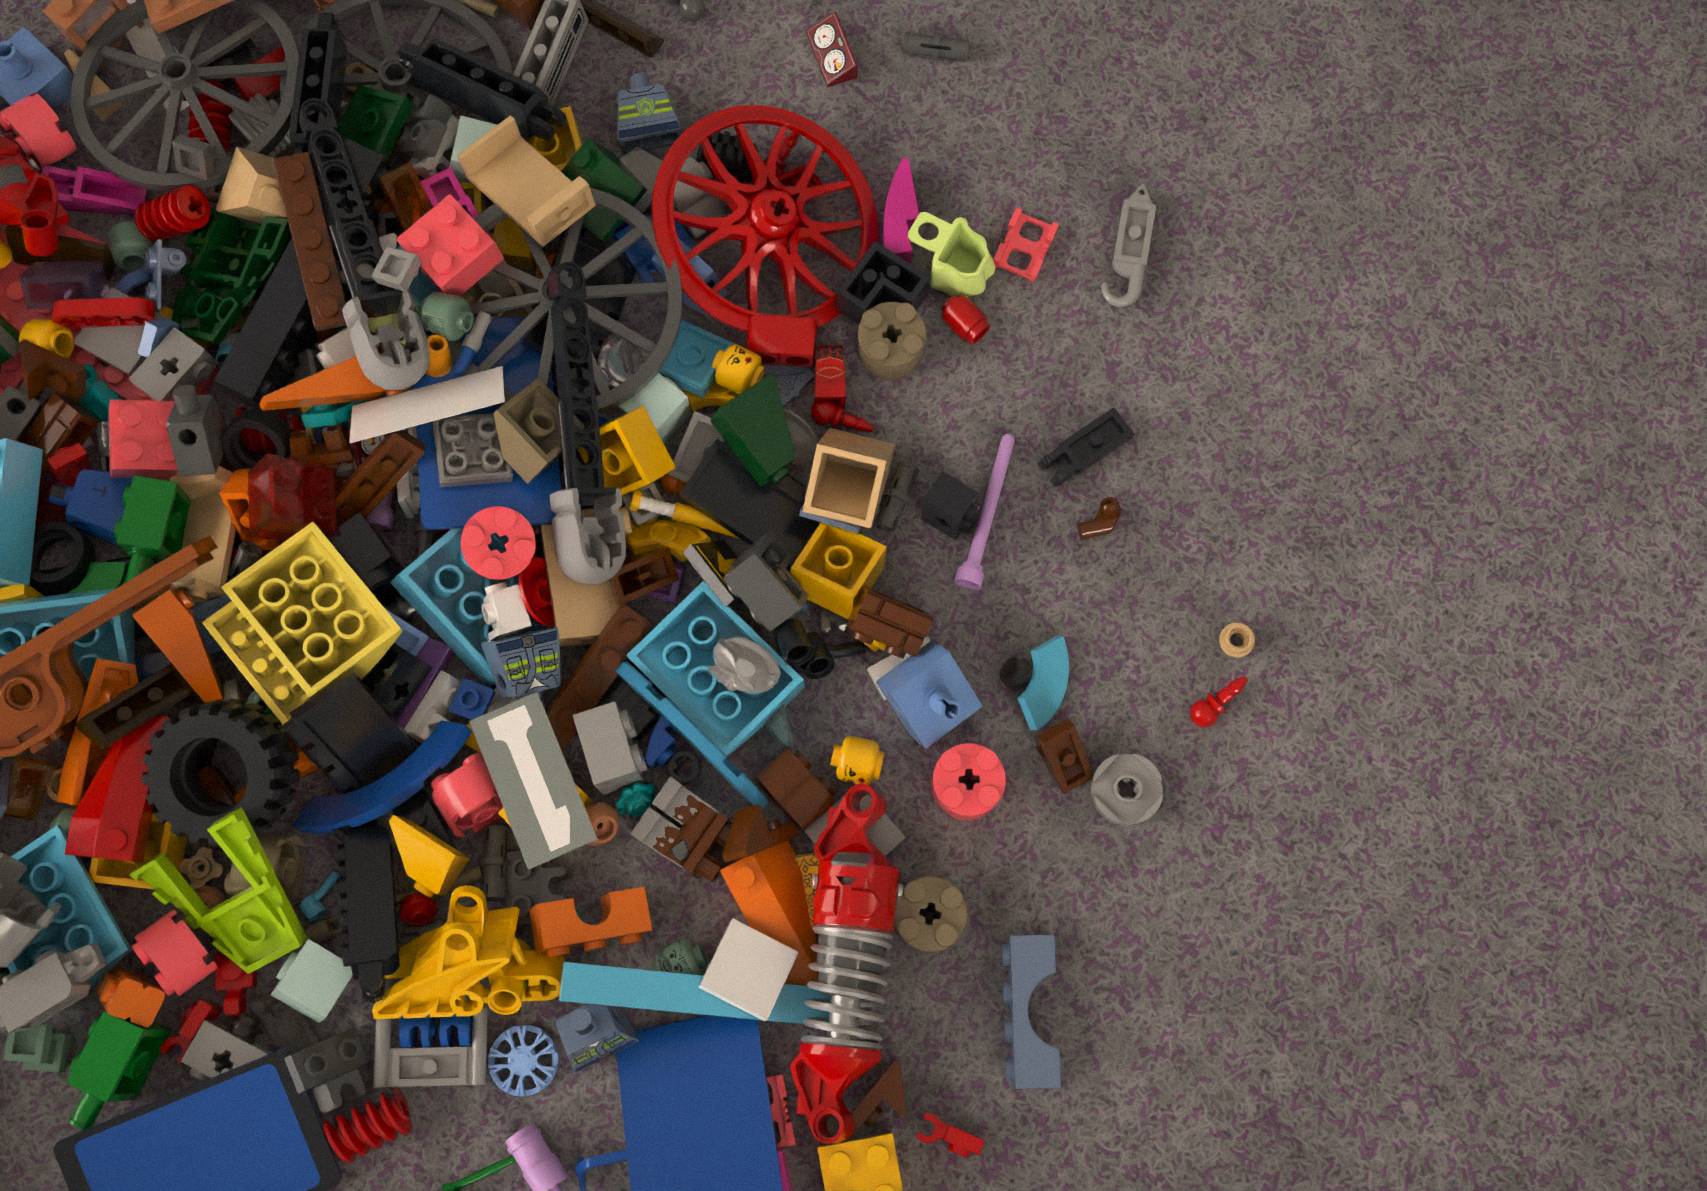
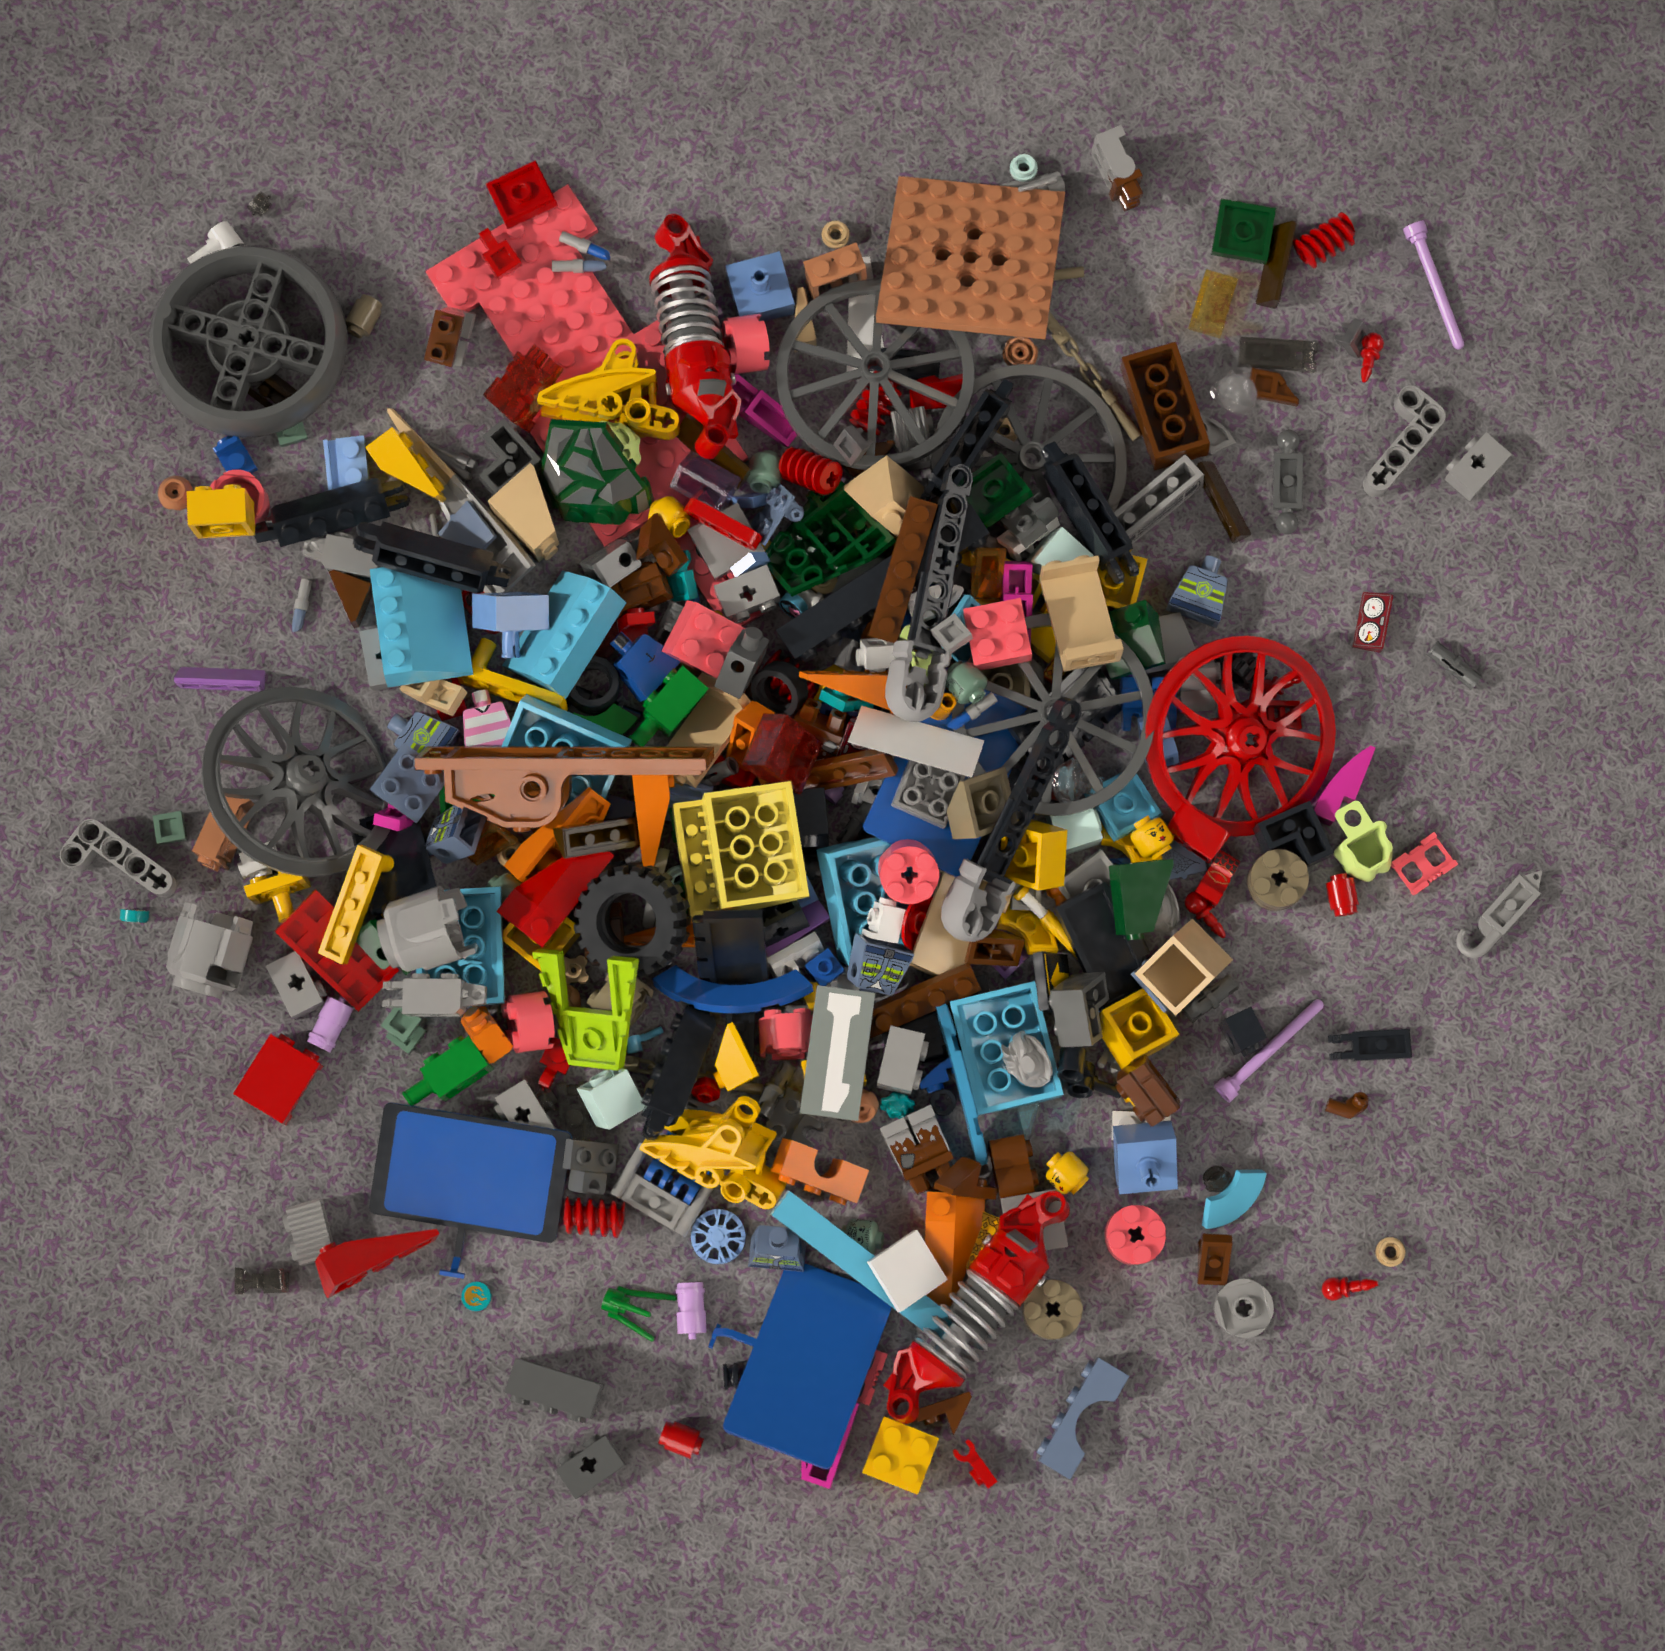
camera: 30 degrees right, 5 degrees up
(192, 1022) = (515, 1075): red plate -> none

